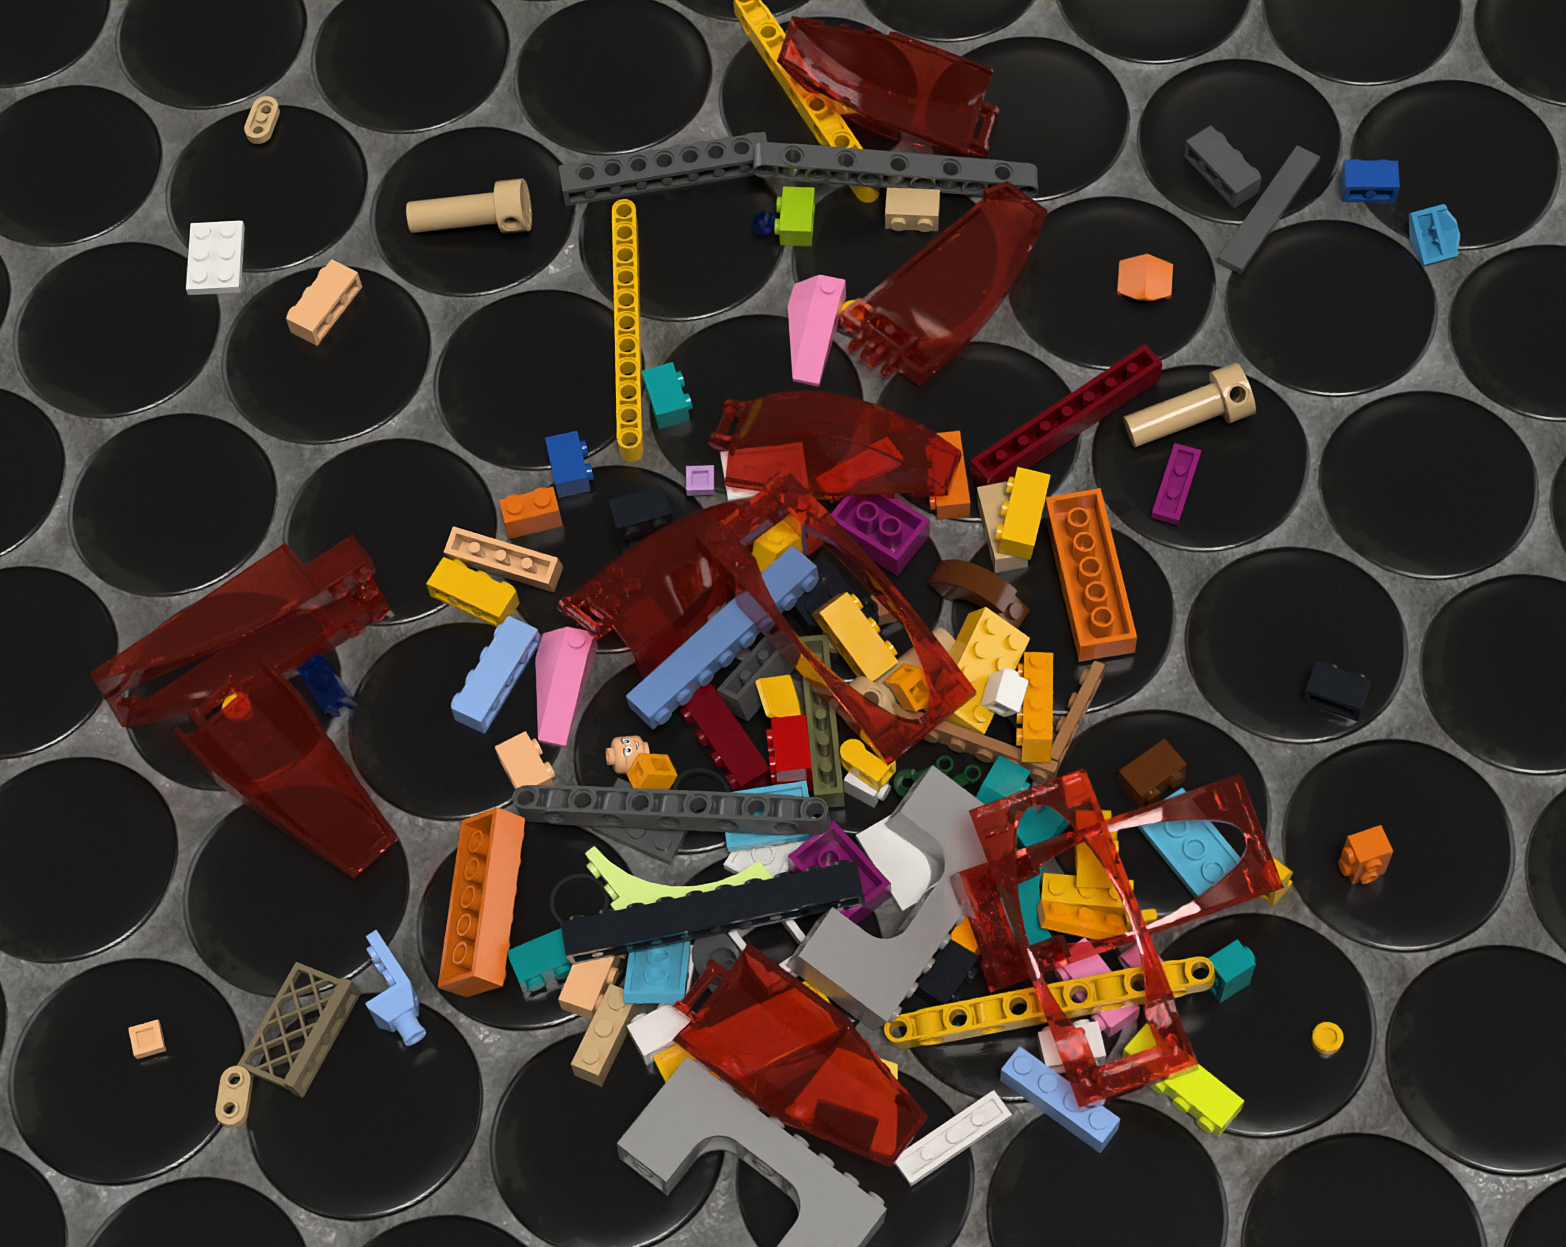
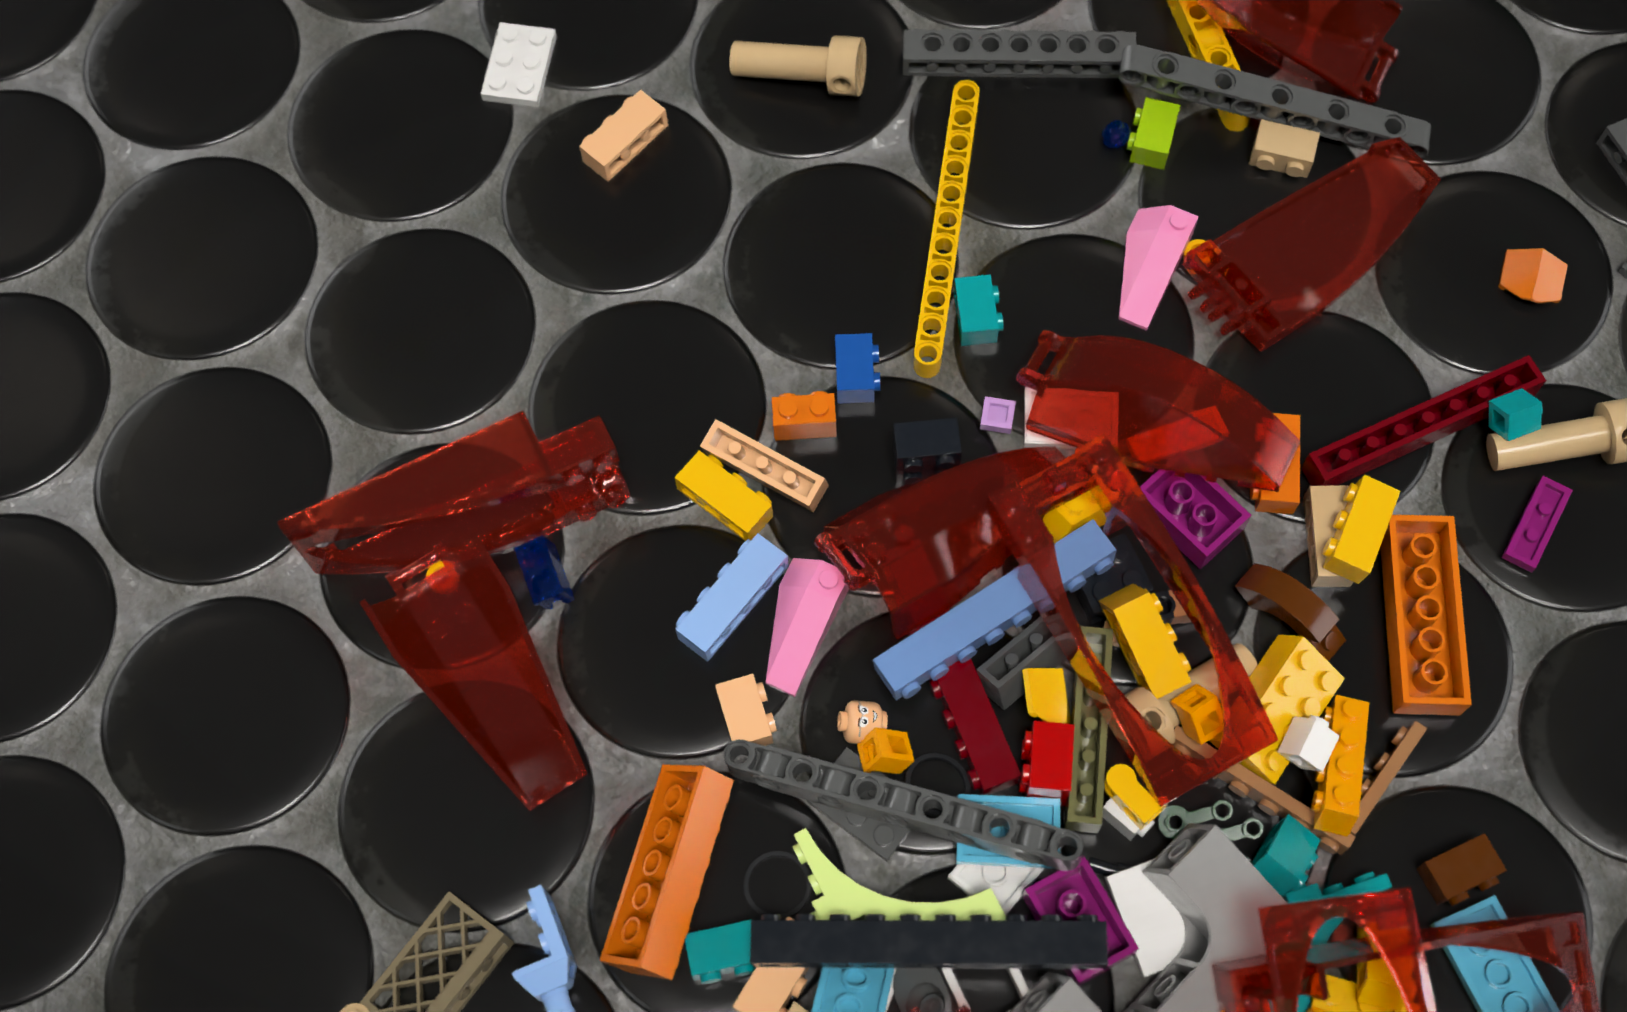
camera: 10 degrees right, 5 degrees up
(147, 1039) = (267, 949): light nougat plate -> none
(1140, 395) = (1515, 414): none -> teal brick

